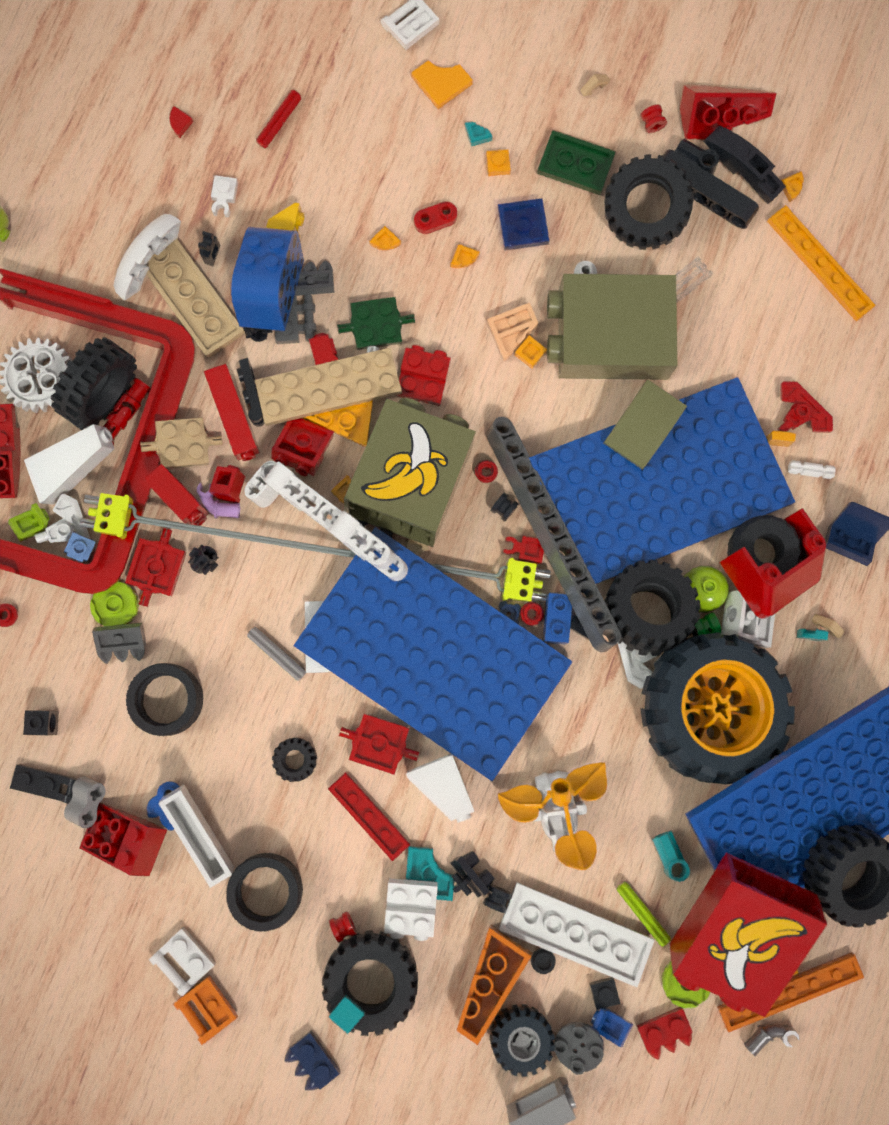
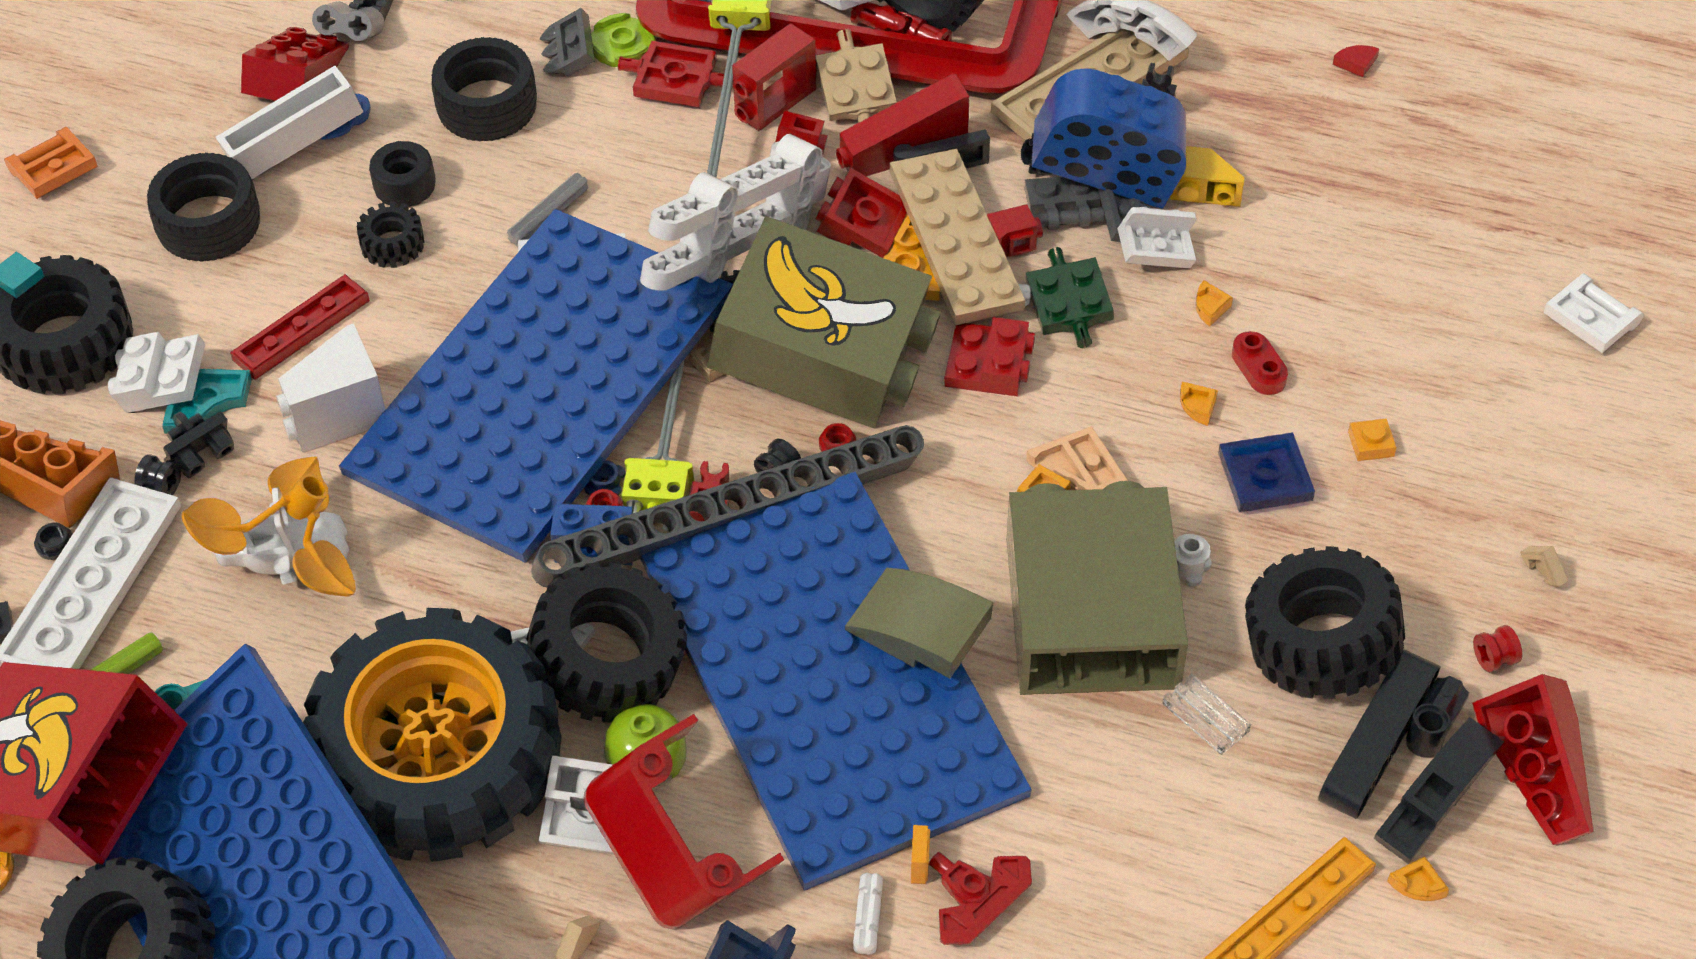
camera: 90 degrees right, 30 degrees down
(188, 955) = (127, 143): white plate -> none
(203, 559) = (694, 114): black gear -> none
(217, 508) = (765, 130): lavender piece -> none
(223, 192) = (1254, 113): white plate -> none
(224, 754) = (402, 173): none -> black tyre
(278, 119) = (1387, 166): red axle -> none
(341, 263) = (1157, 237): none -> white bracket
(342, 927) = (142, 297): red wheel -> none
(379, 744) = (407, 327): red plate -> none
(441, 83) = (1497, 360): light orange tile -> none
(477, 134) = (1417, 410): teal tile -> none
(576, 162) = (1397, 533): dark green plate -> none
(707, 625) = (578, 739): green wheel -> none
(774, 530) = (722, 793): black tyre -> none
(818, 635) = (560, 914): teal tile -> none

